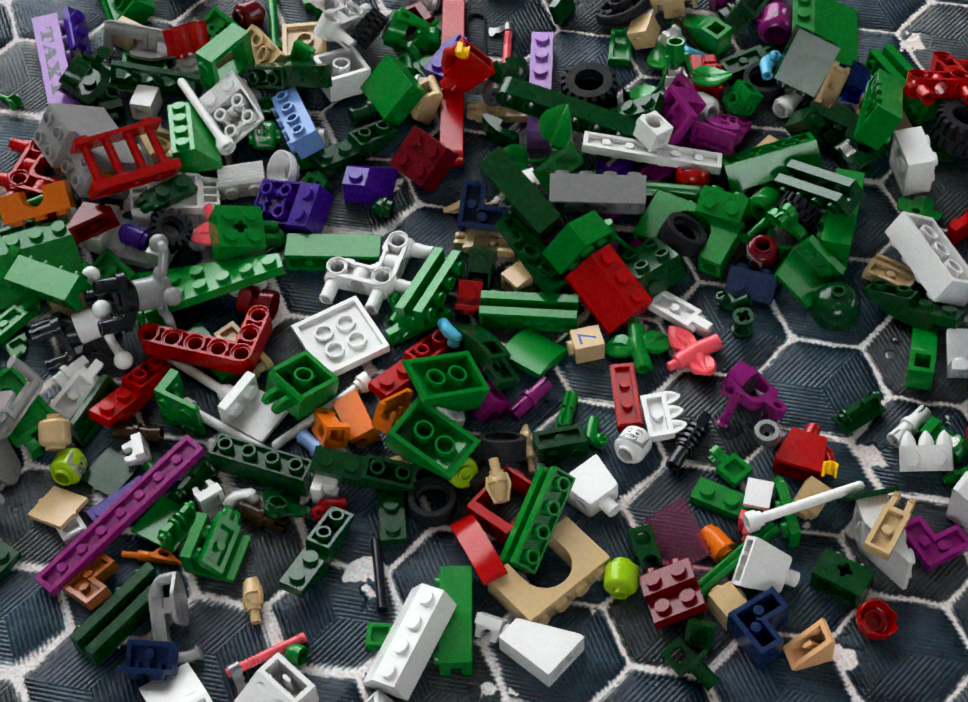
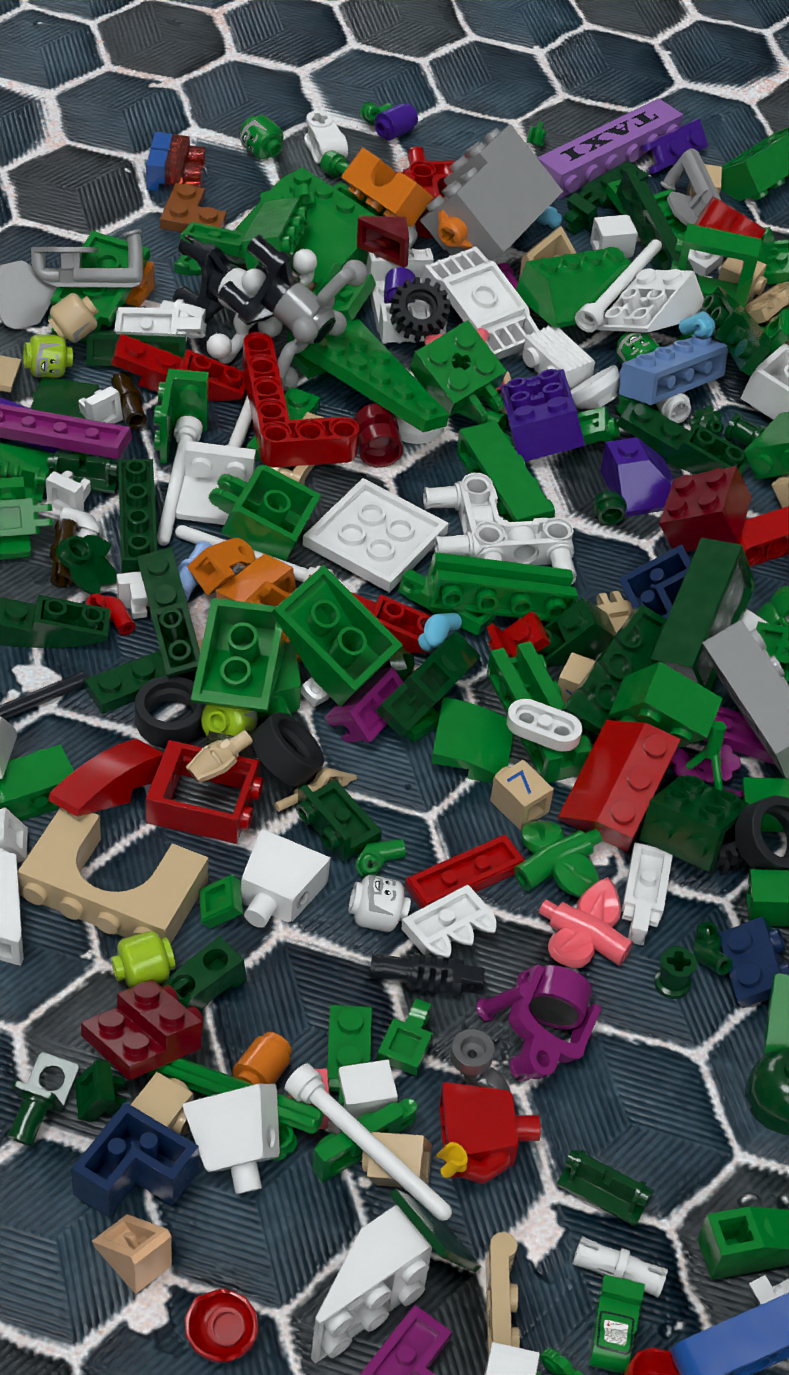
camera: 55 degrees right, 5 degrees down
(78, 69) = (597, 152): dark green piece -> none
(122, 179) = (477, 247): red fence -> none
(166, 194) = (467, 283): dark green hinge -> none
(271, 89) = (699, 324): none -> medium azure arm
(343, 127) = (708, 419): none -> dark green plant
(529, 398) = (394, 762): magenta pin -> none
(537, 519) = (179, 821): green brick -> none
(554, 307) = (544, 725): none -> white plate
(568, 408) = (410, 811): green piece -> none
(593, 524) = (220, 901): none -> green tile
(678, 533) = (252, 1009): clear pink piece -> none
(829, 578) = (276, 1279): dark green brick -> none
(888, 527) = (363, 1260): tan hinge -> none
(925, 493) = (500, 1294): none -> tan plate
(926, 455) = (570, 1303): white plate -> none

